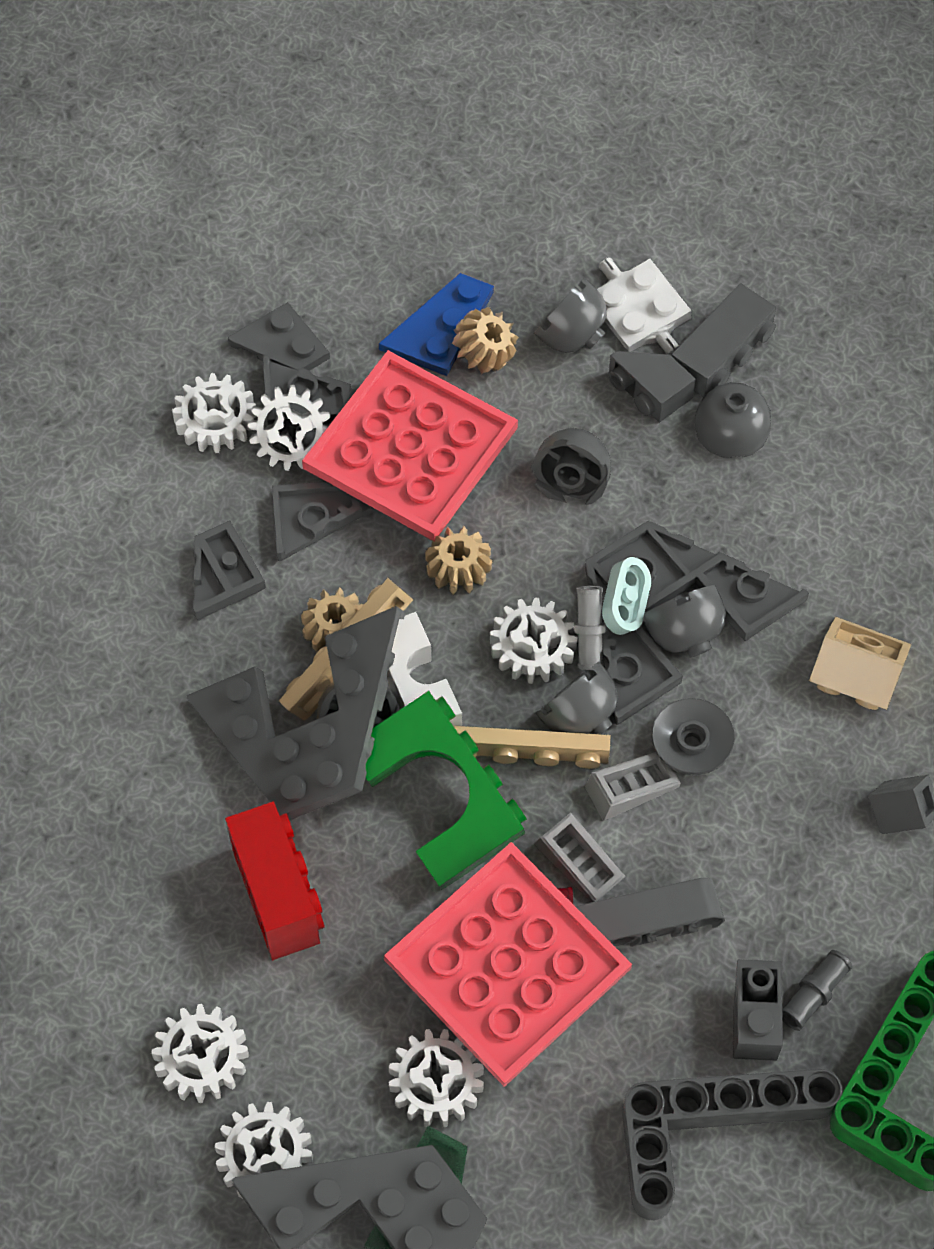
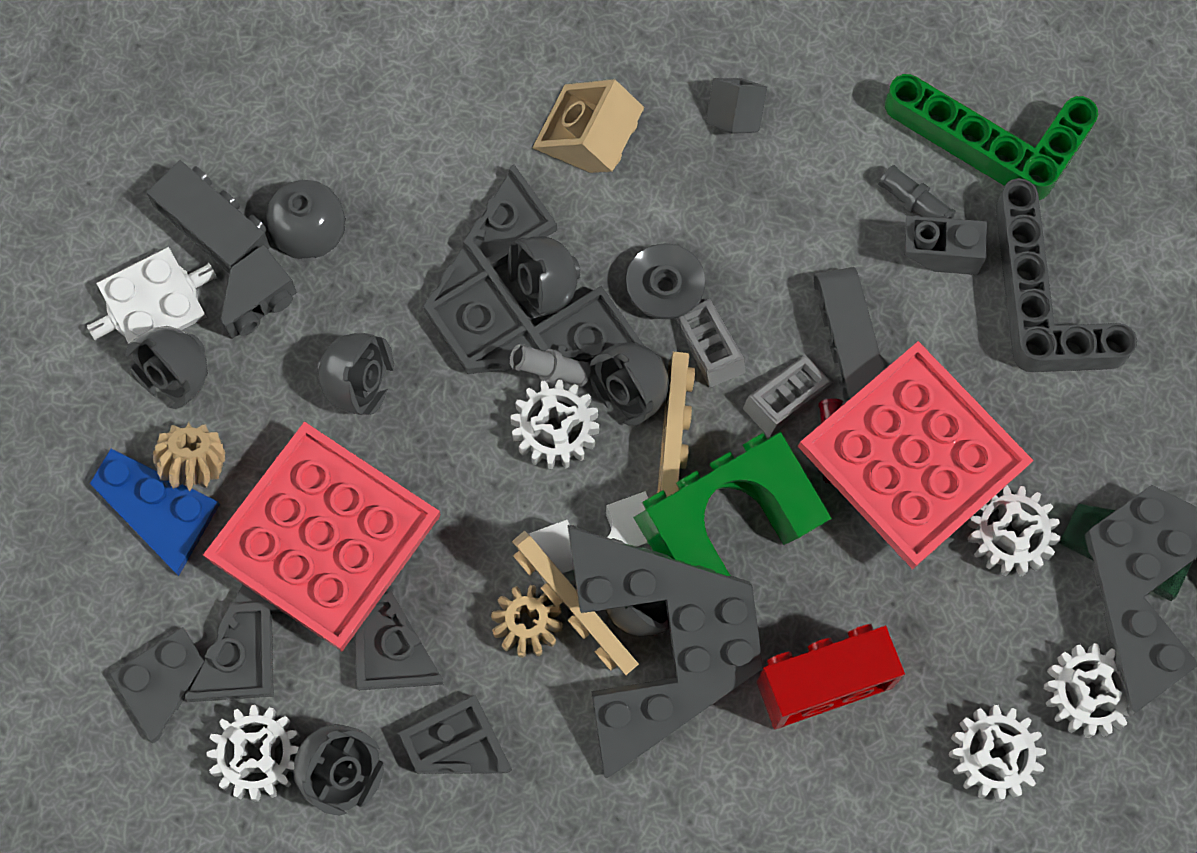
camera: 90 degrees left, 10 degrees up
(194, 468) = (338, 768): none -> dark grey cylinder
(272, 432) = (287, 686): white gear -> none
(471, 569) = (468, 504): tan gear -> none
(626, 600) = (519, 326): light aqua plate -> none

